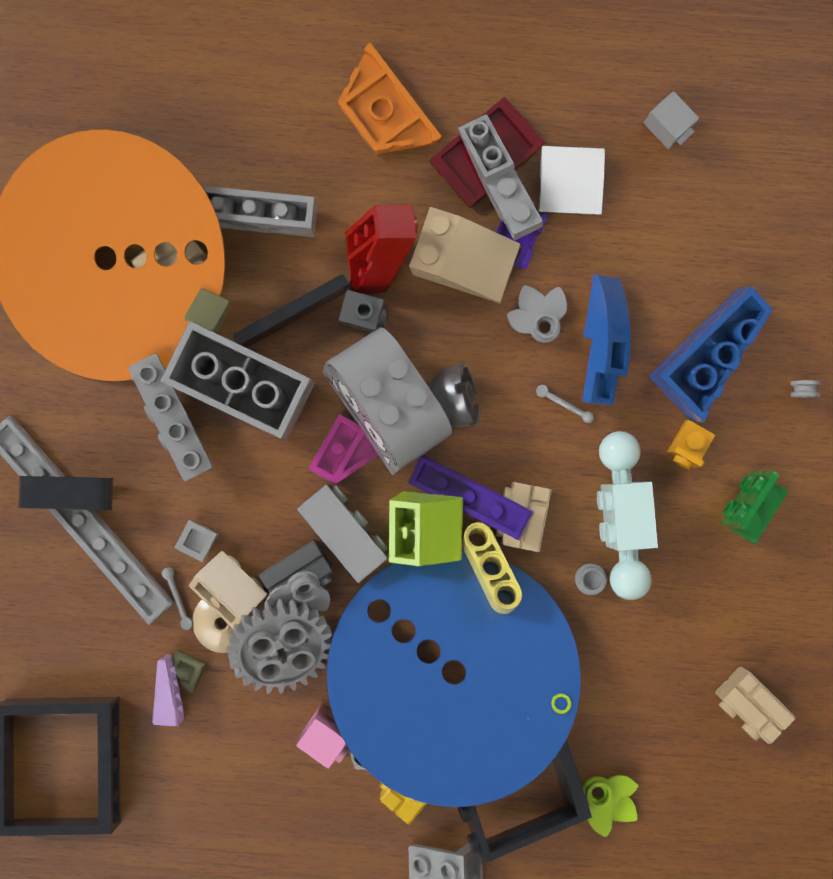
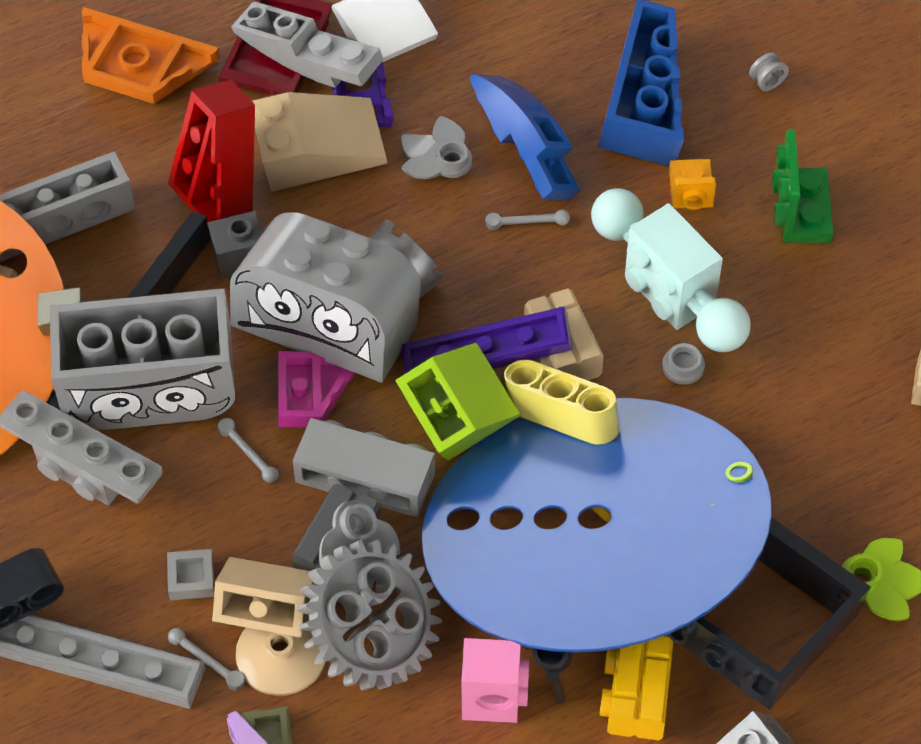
camera: 30 degrees left, 30 degrees down
(286, 494) = (227, 428): none -> light grey hinge

